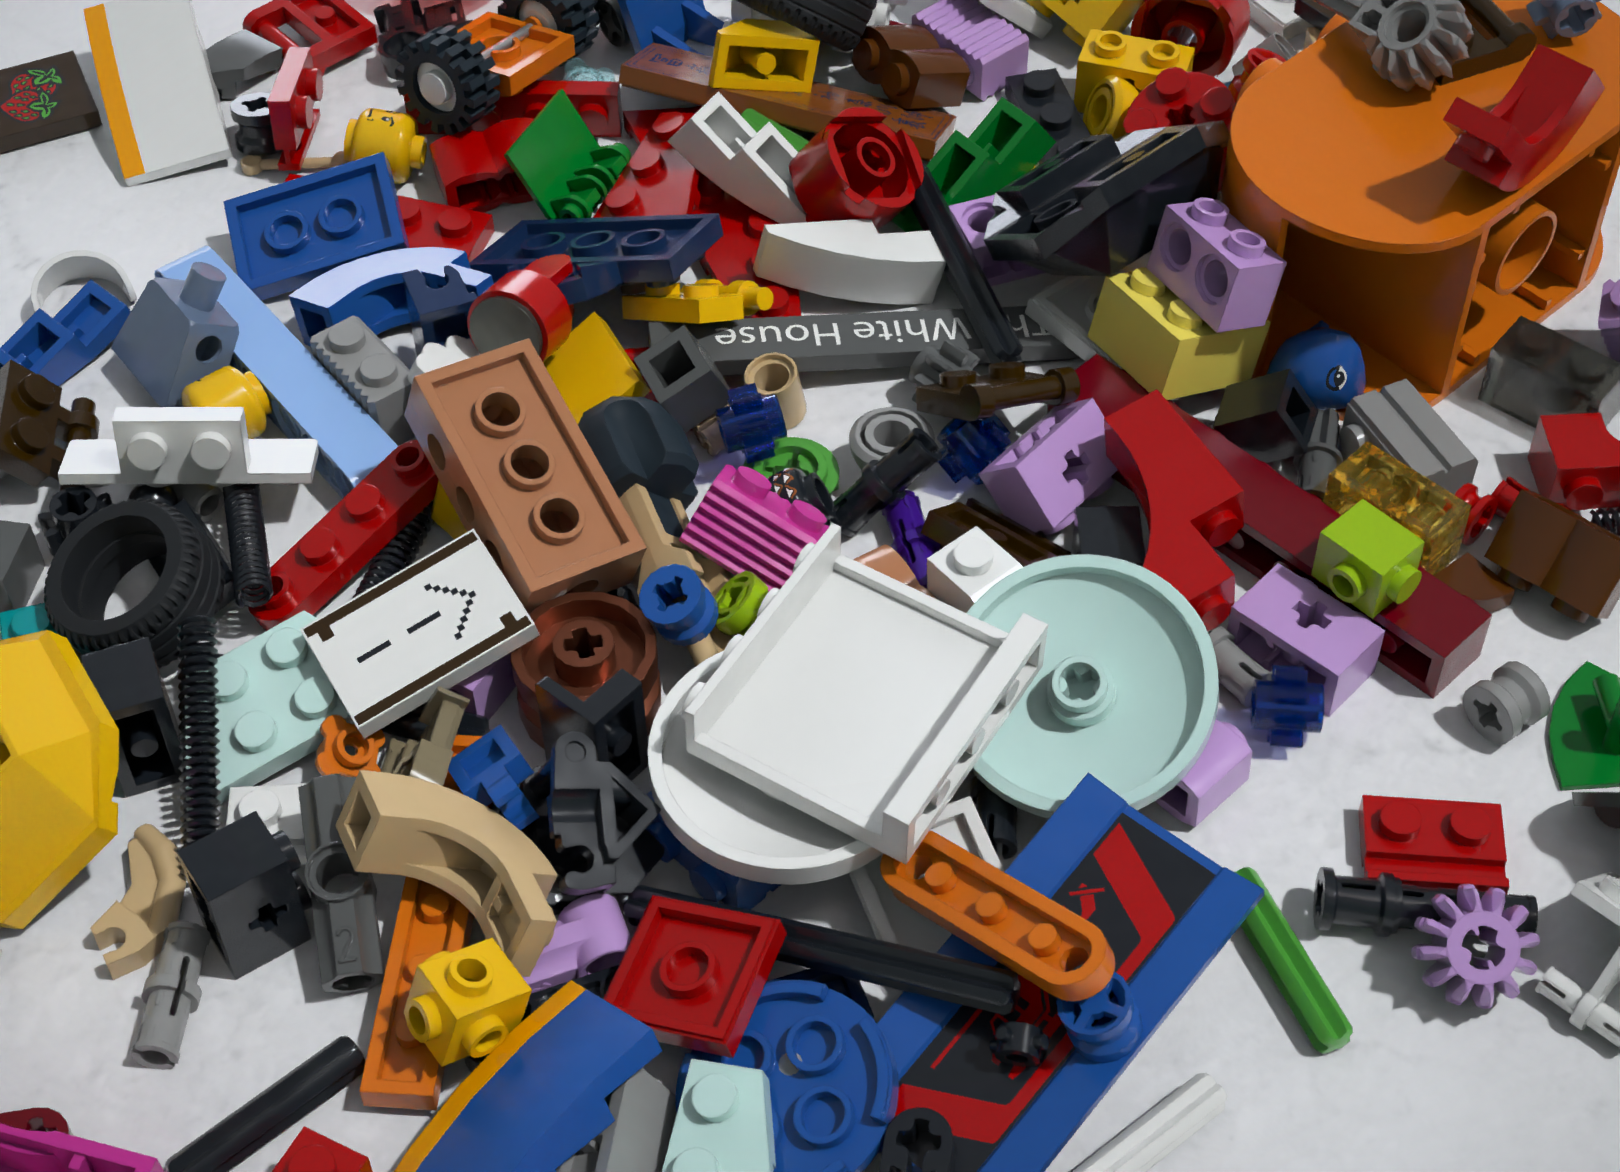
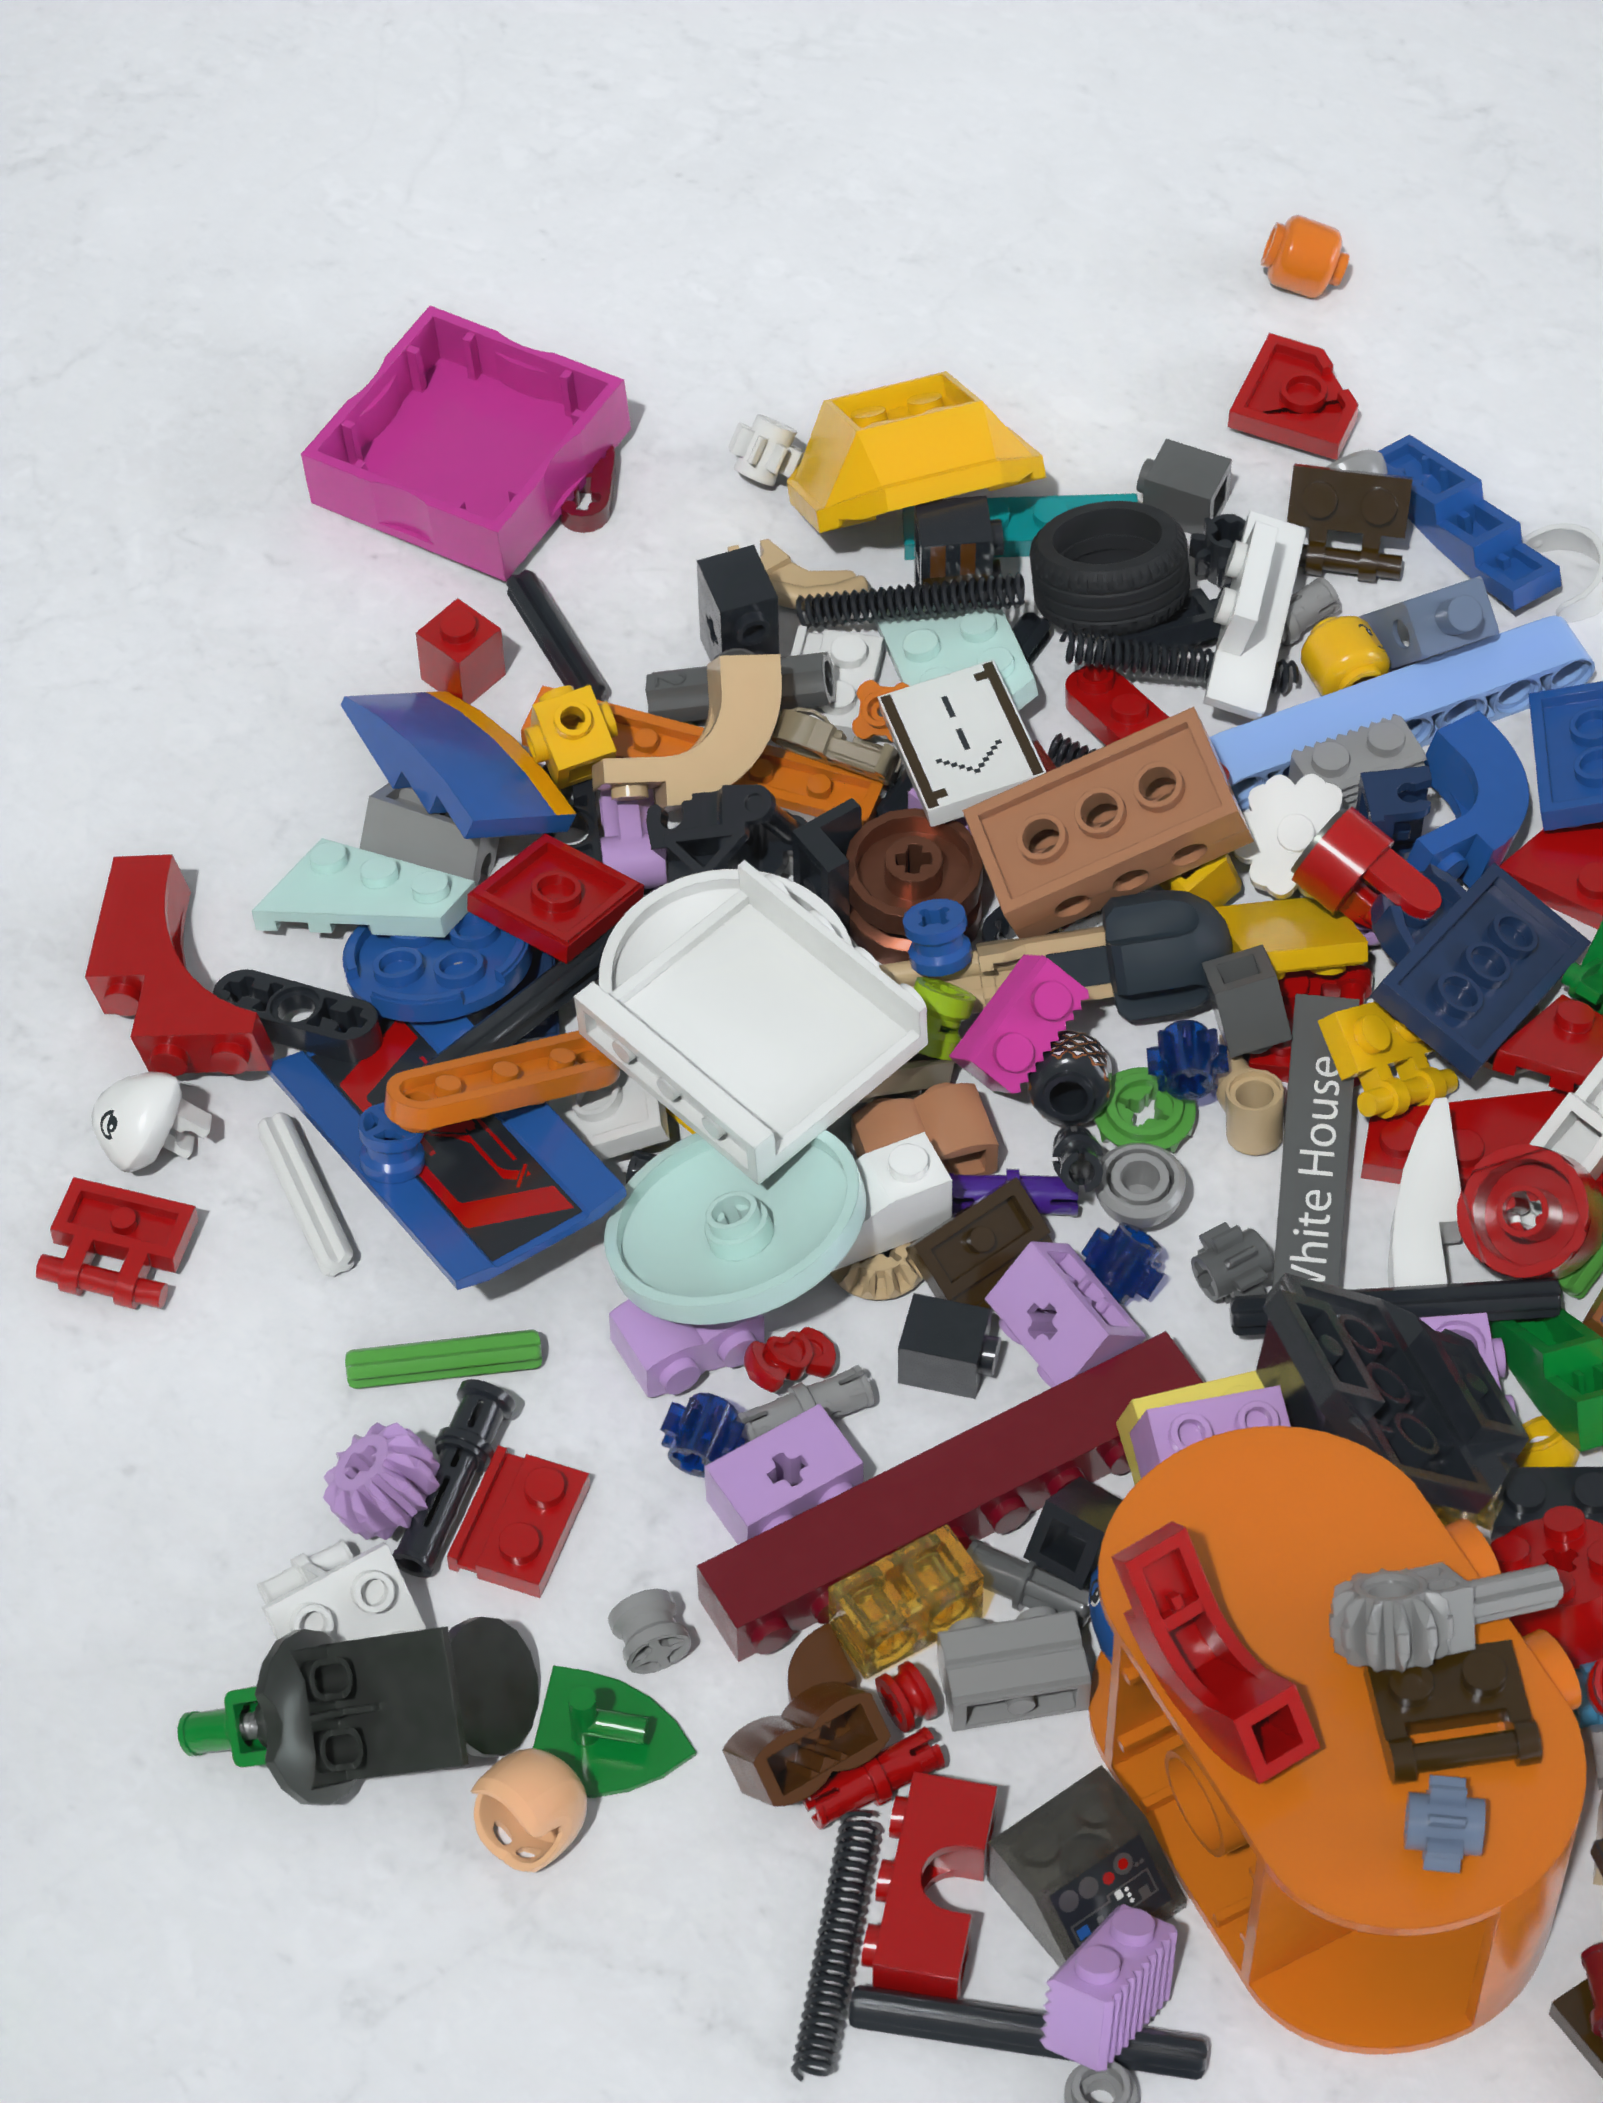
camera: 105 degrees right, 5 degrees up
(171, 995) = (650, 578): light grey pin -> none
(492, 772) = (802, 785): blue plate -> none
(1007, 385) = (1157, 1265): dark brown plate -> none
(1184, 498) = (937, 1378): red arch -> none
(1368, 559) = (814, 1511): lime brick -> none

